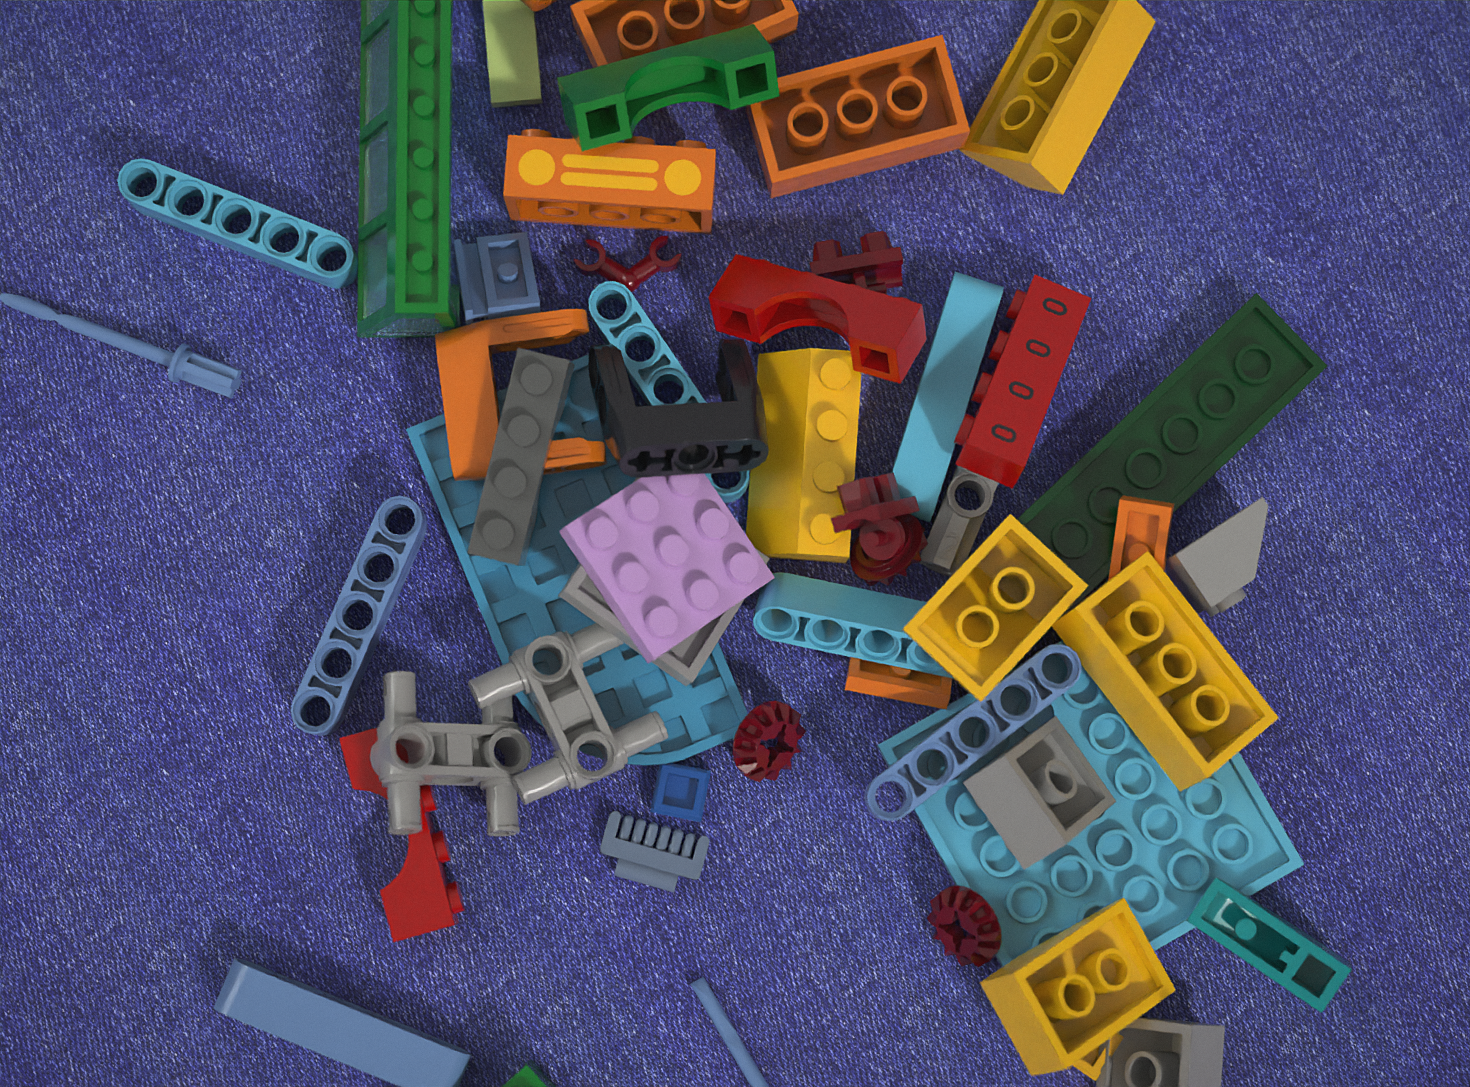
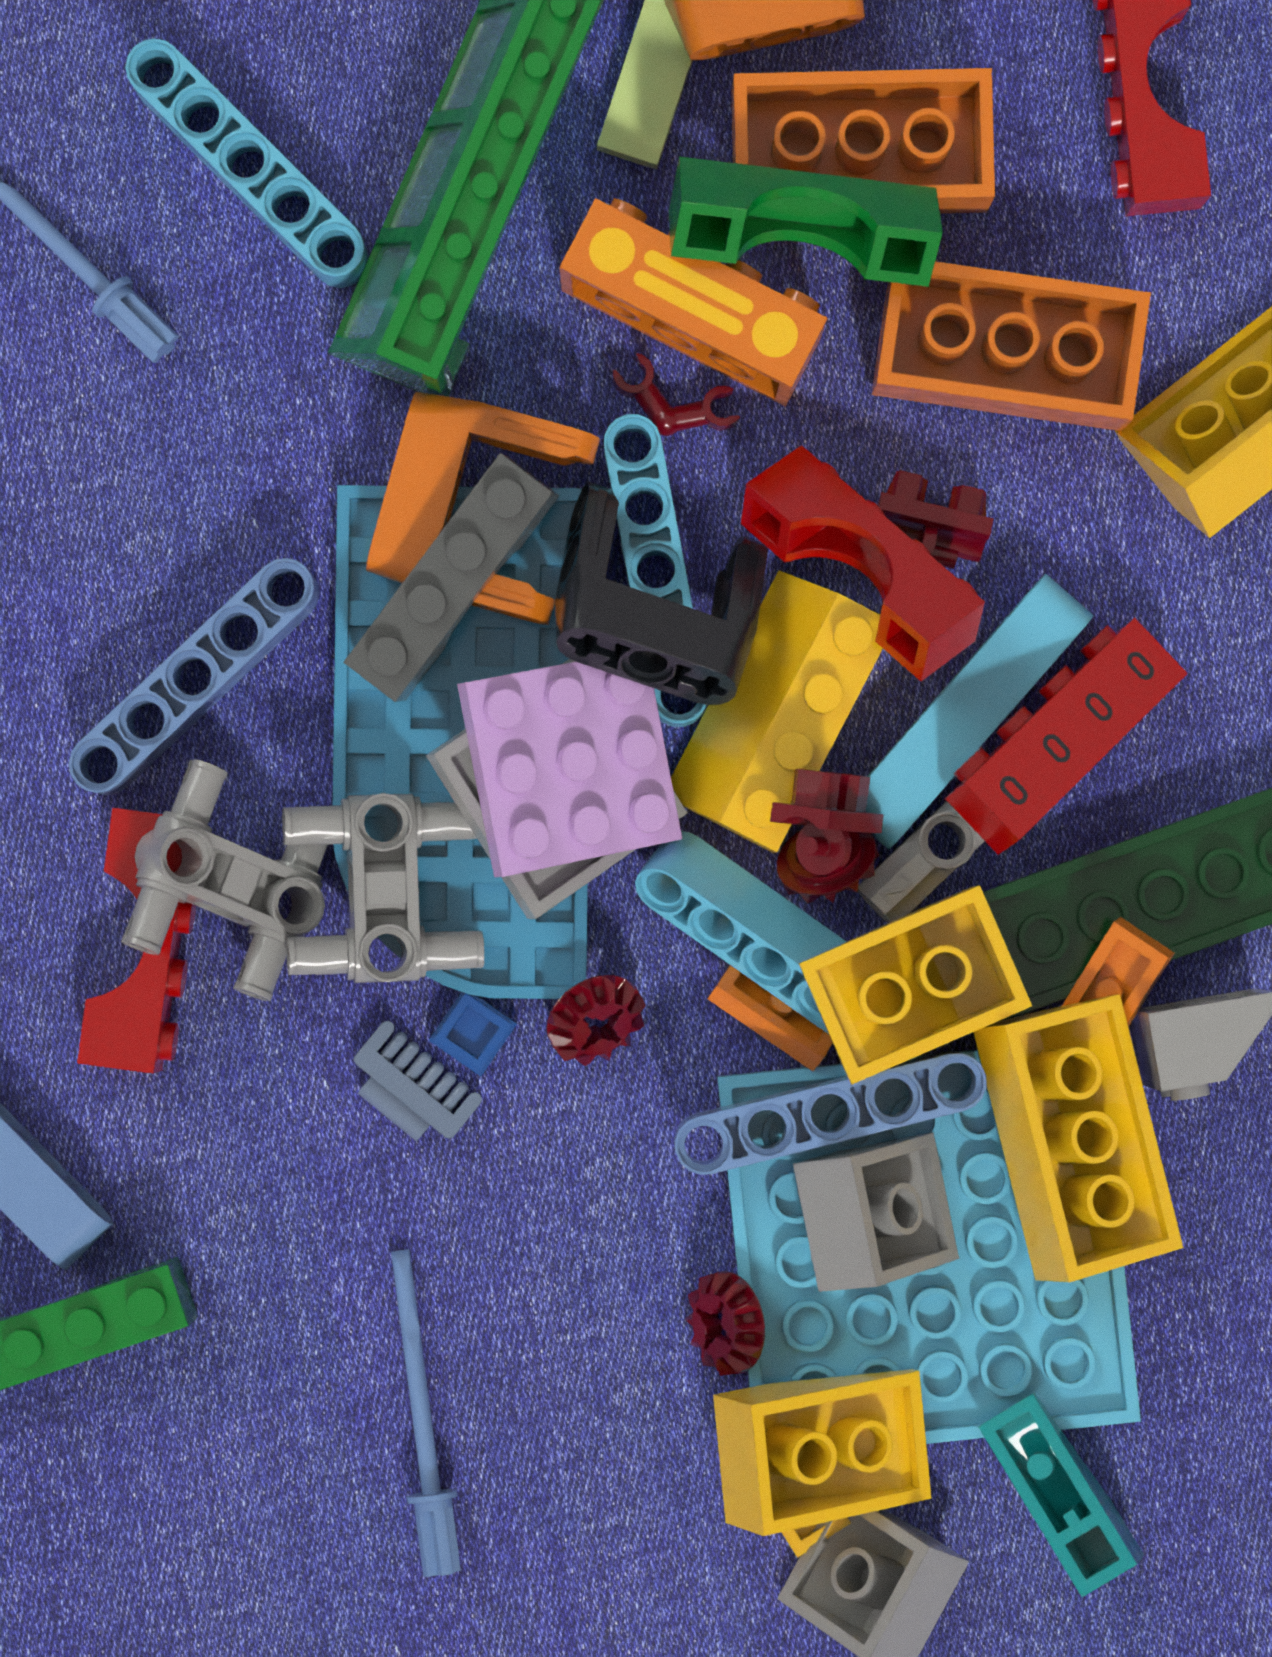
camera: 25 degrees right, 5 degrees up
(496, 277) = (515, 354): medium blue plate -> none

